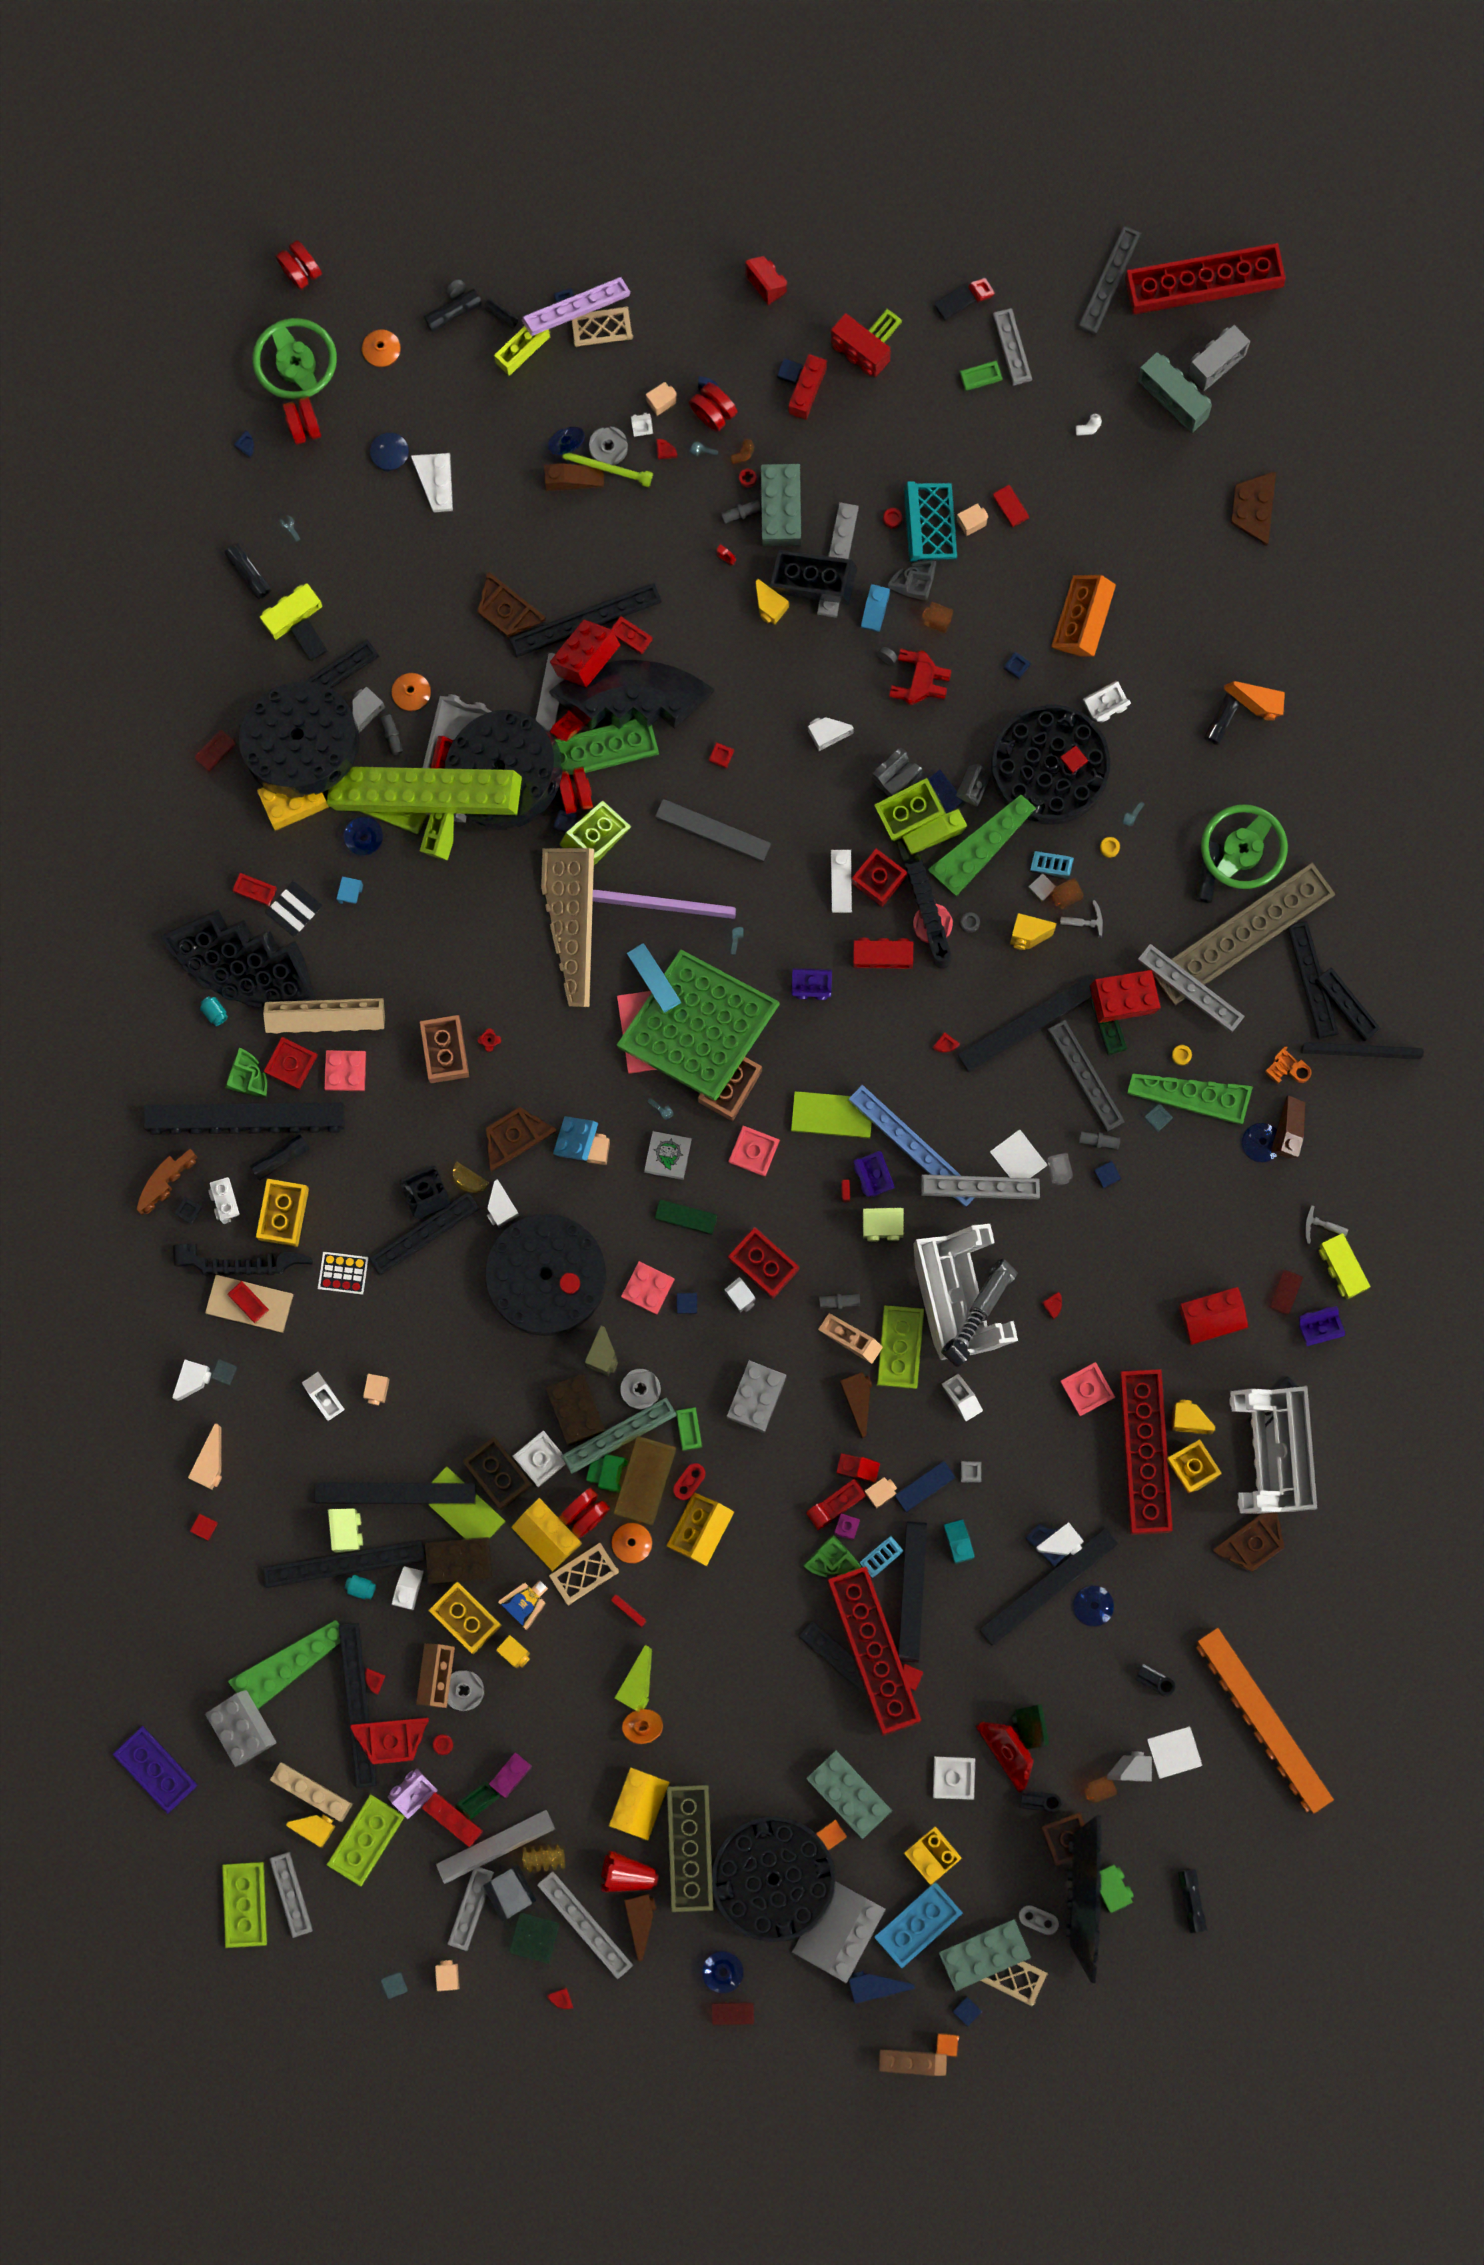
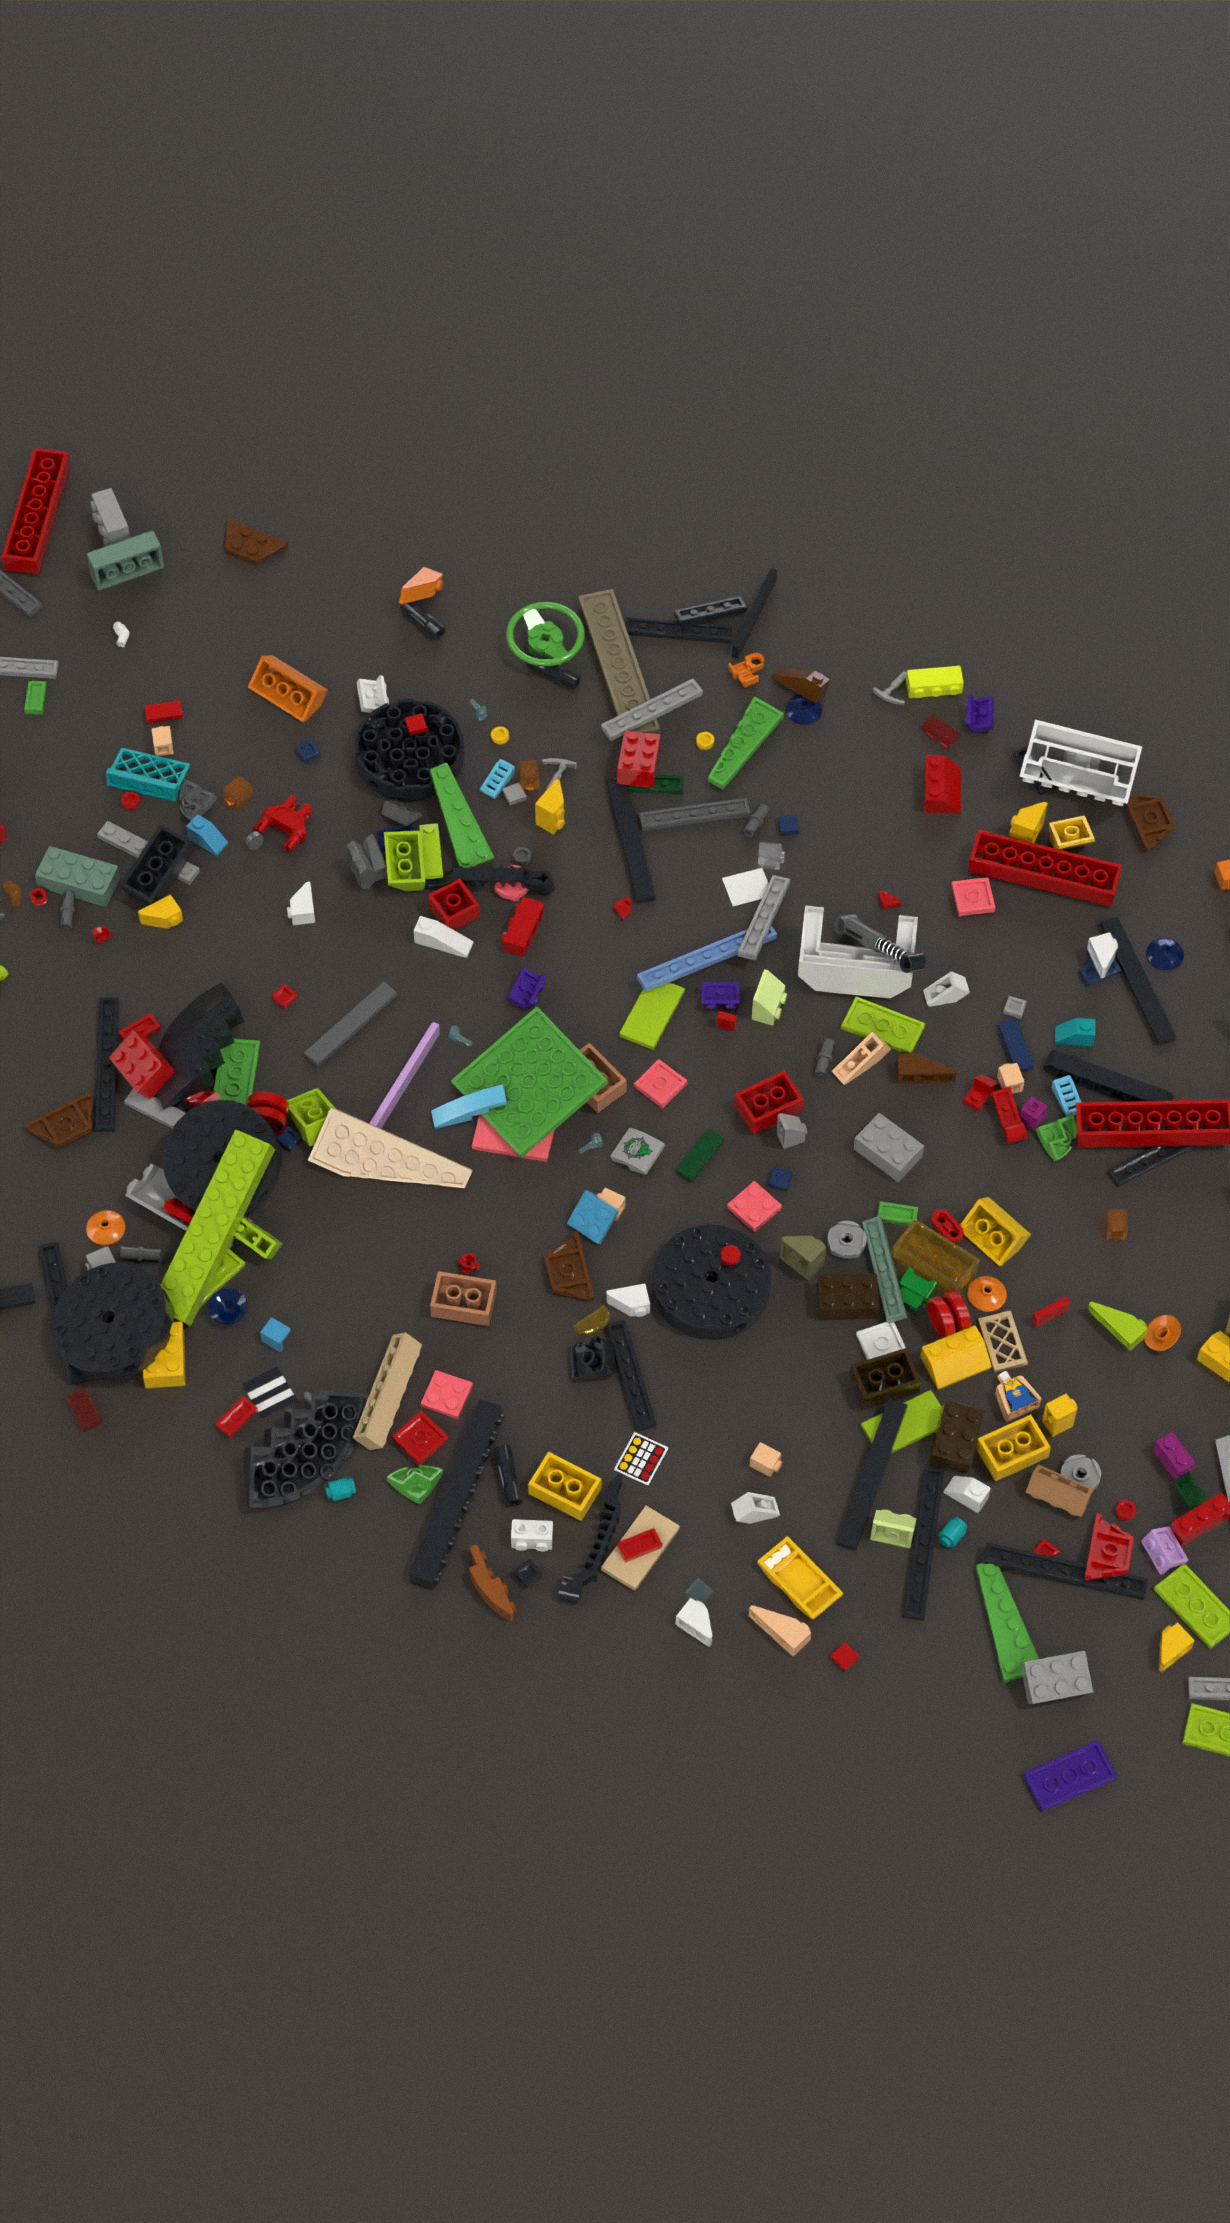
camera: 75 degrees left, 20 degrees down
(265, 1460) = (799, 1578): none -> yellow slope
(311, 1792) = (1137, 1635): tan brick -> none
(750, 1646) = (1116, 1224): none -> clear orange brick
(1158, 1117) = (753, 773): clear light blue tile -> none

